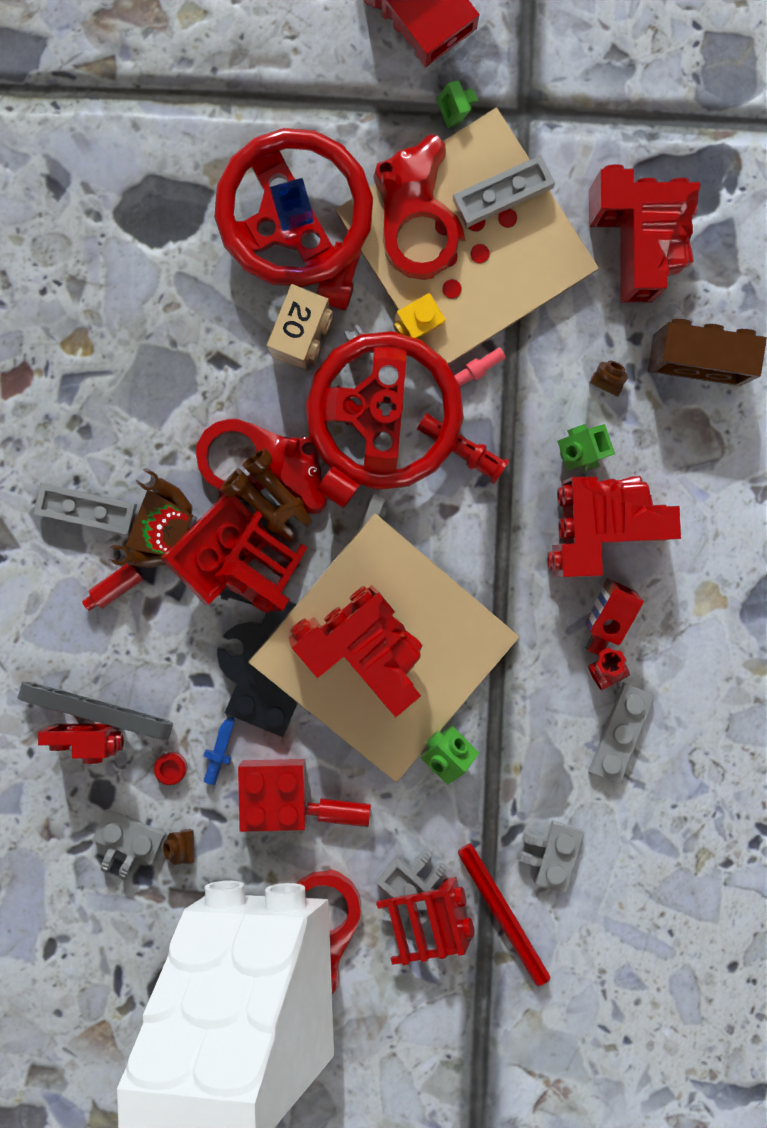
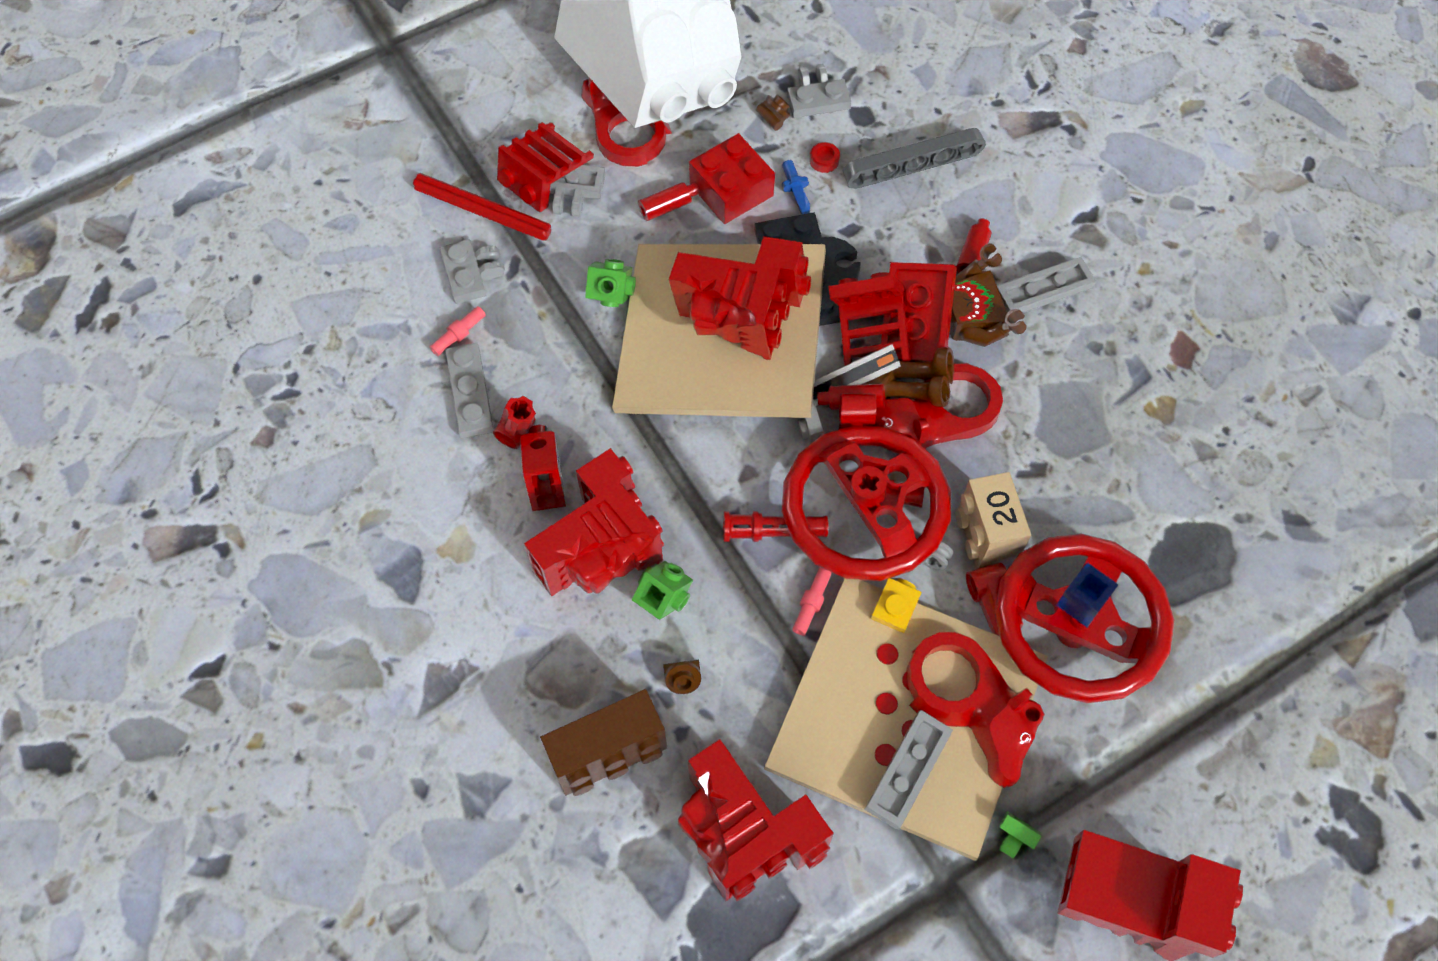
camera: 145 degrees right, 25 degrees down
(88, 740) = (908, 123): red plate -> none
(307, 530) = (859, 371): none -> sticker
(324, 510) = (833, 396): none -> red cylinder
(599, 796) = (457, 331): none -> coral bar

